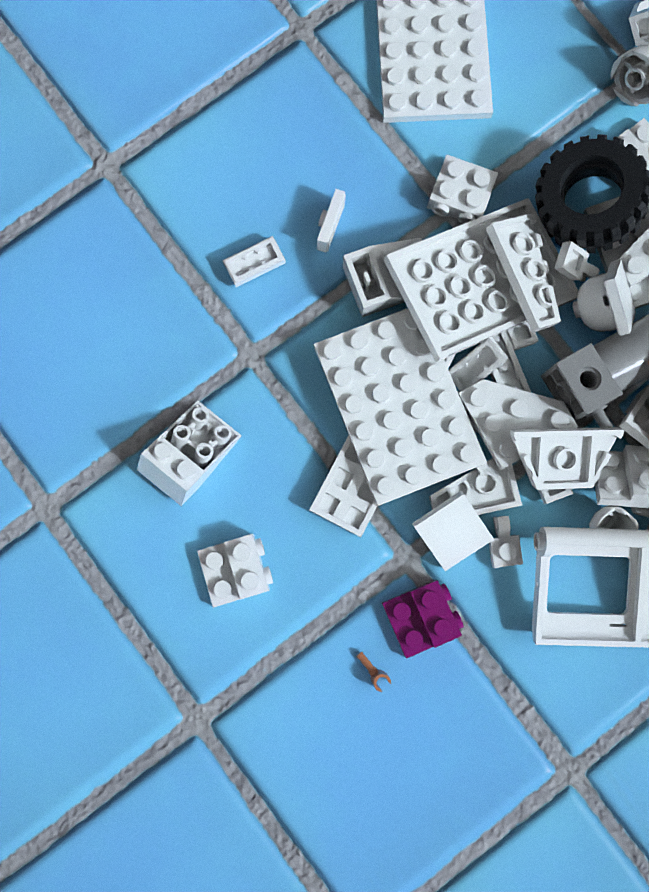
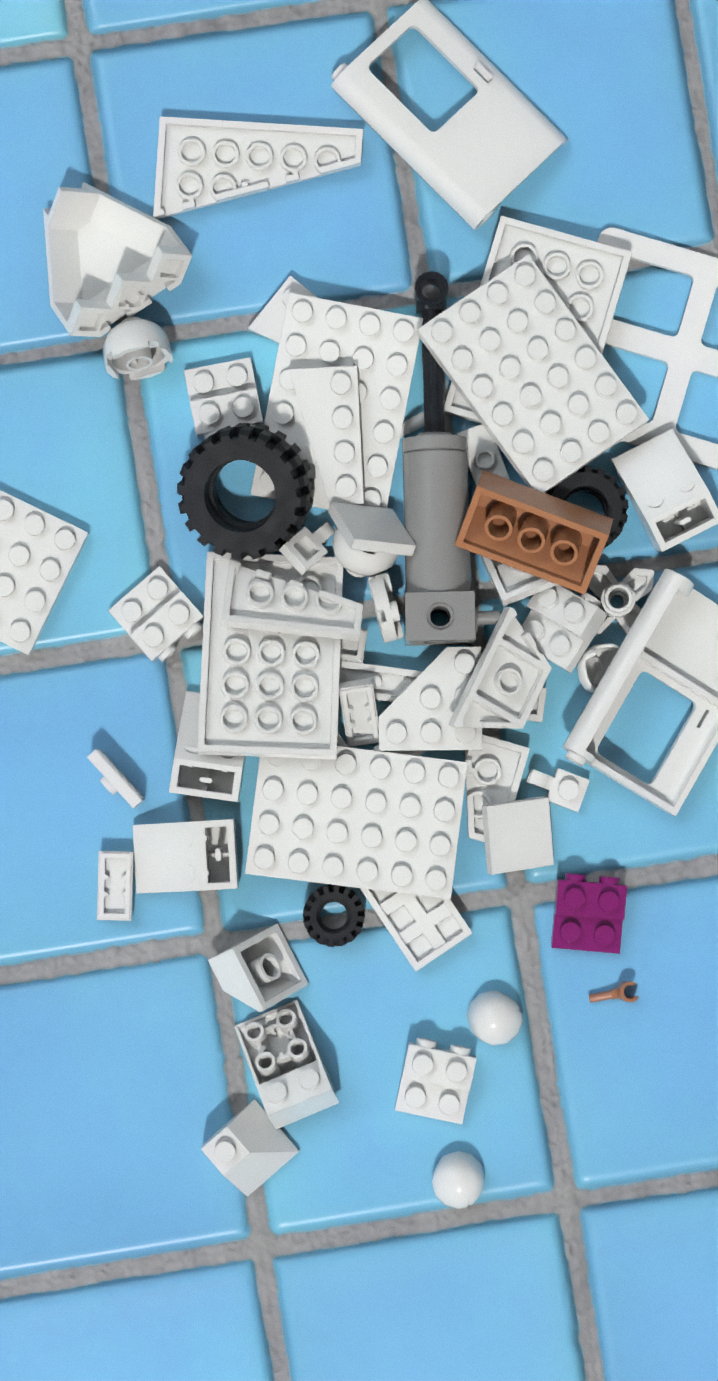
camera: 65 degrees left, 5 degrees up
(110, 457) = (249, 1148): none -> white slope
(169, 628) = (458, 1179): none -> white hair
(249, 394) = (259, 970): none -> white slope
(304, 299) = (186, 856): none -> white slope
(306, 589) = (494, 1018): none -> white hair
(323, 411) = (318, 930): none -> black tyre
(565, 341) = (385, 607): none -> white plate

